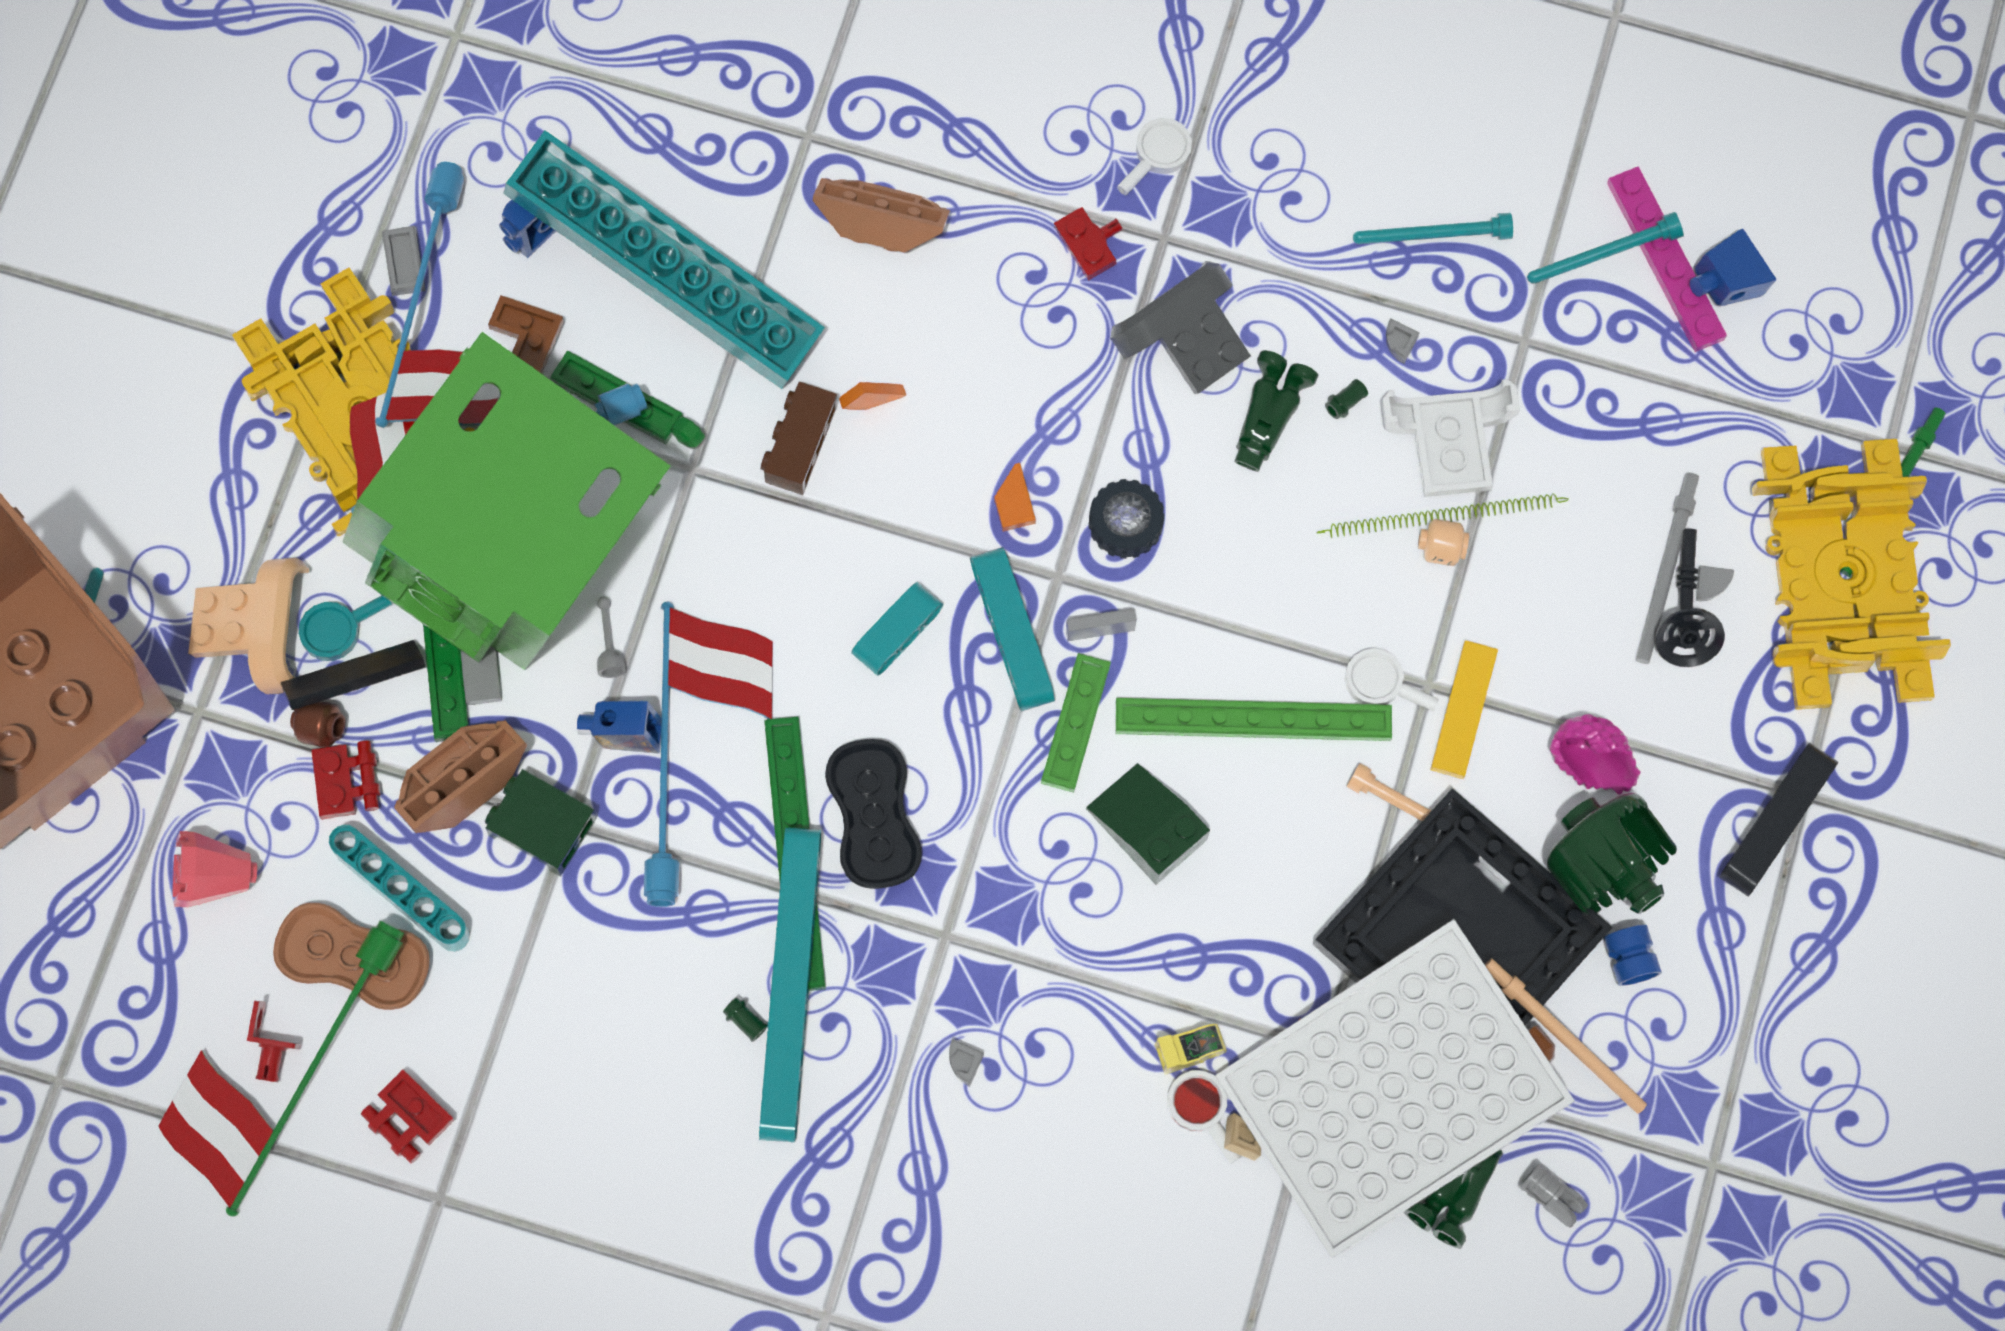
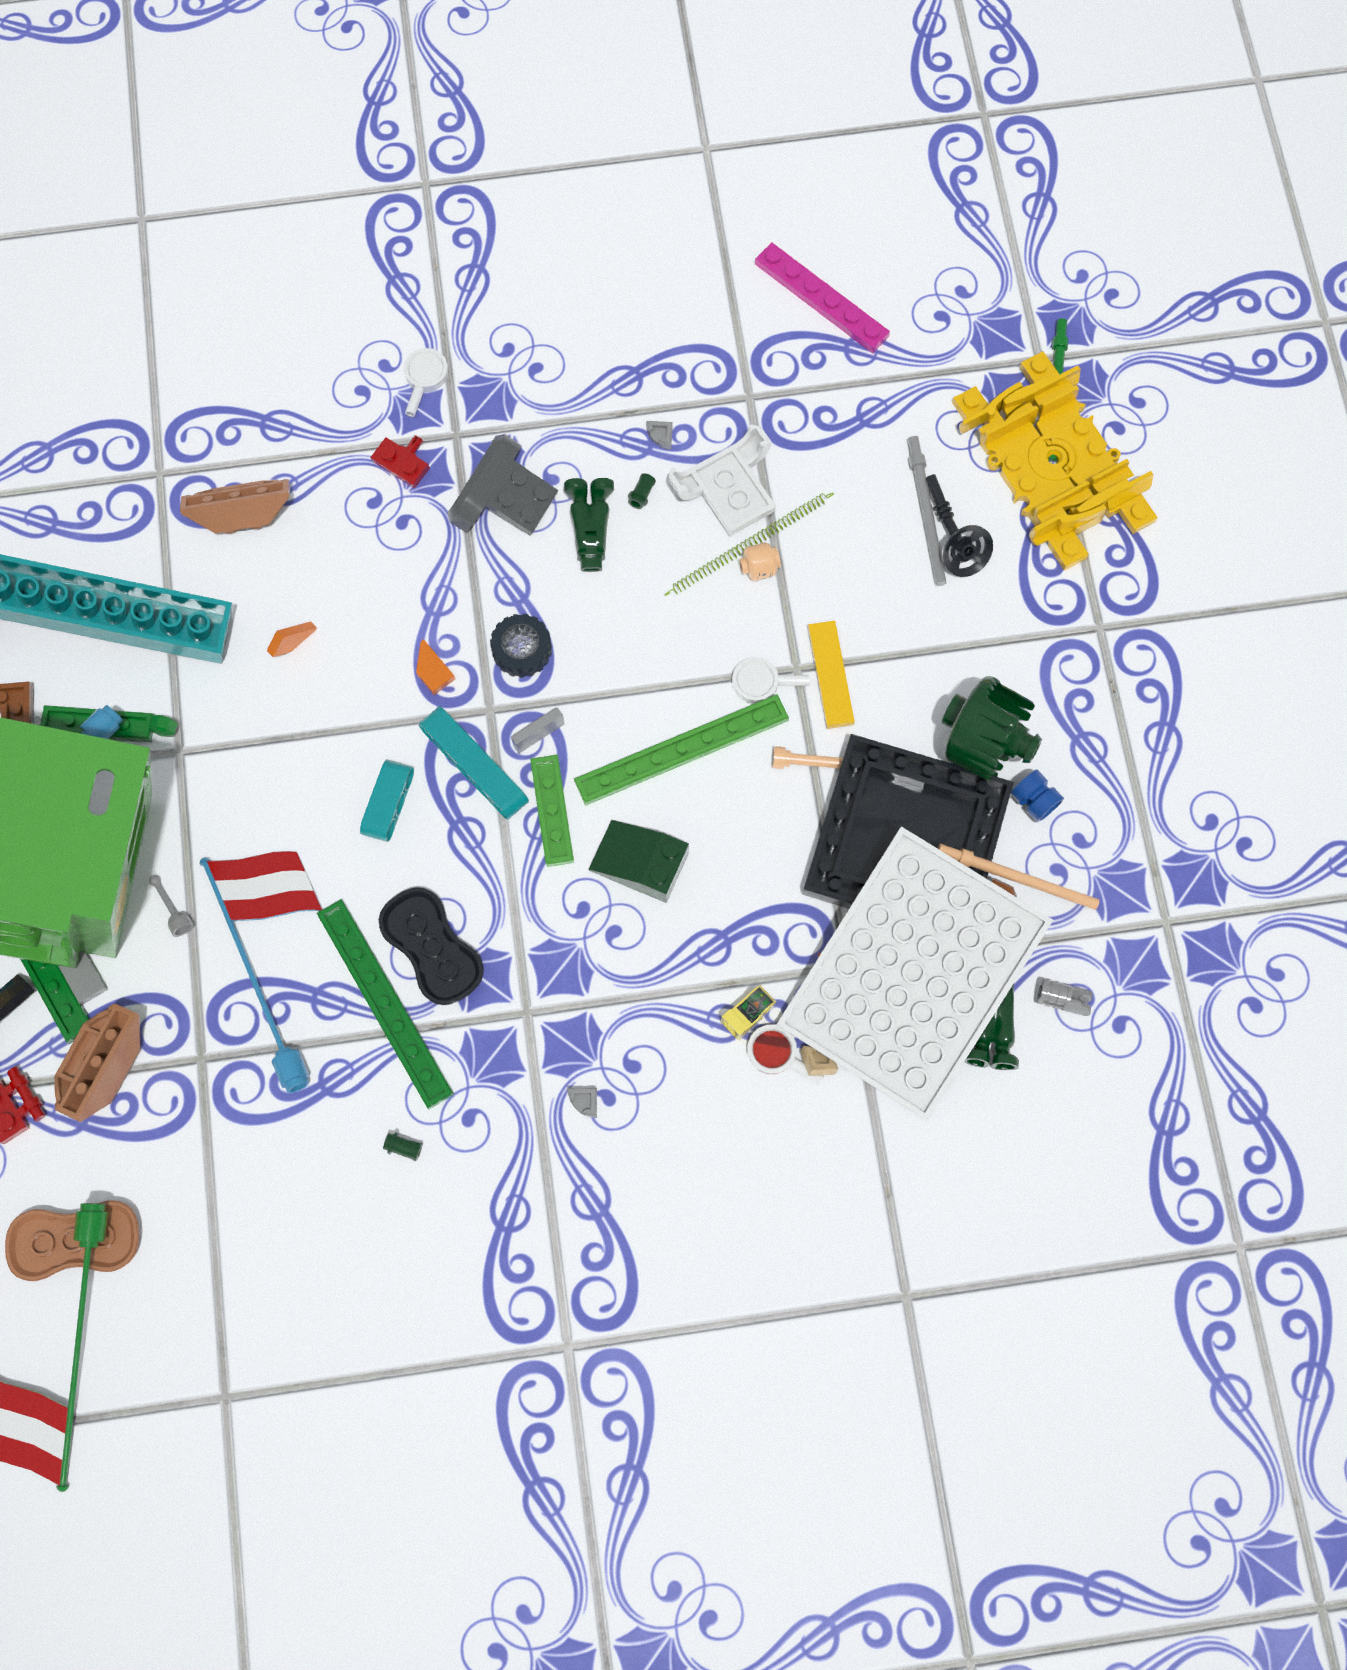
camera: 20 degrees left, 0 degrees up
(271, 1049) = (39, 1343): red bracket -> none
(387, 876) = (74, 1165): teal beam -> none
(415, 1108) = (175, 1336): red plate -> none
(540, 821) = (176, 1067): dark green panel -> none
(623, 726) = (209, 966): blue torso -> none
(789, 985) = (425, 1106): teal beam -> none
(799, 437) = (249, 692): reddish brown brick -> none
(1498, 226) = (694, 324): teal piece -> none
(1595, 754) = (941, 663): dark pink piece -> none
(1667, 228) = (814, 273): teal piece -> none
(1712, 582) = (963, 506): light grey tile -> none
(1732, 271) = (873, 285): blue torso -> none
(1778, 819) = (1092, 652): black beam -> none

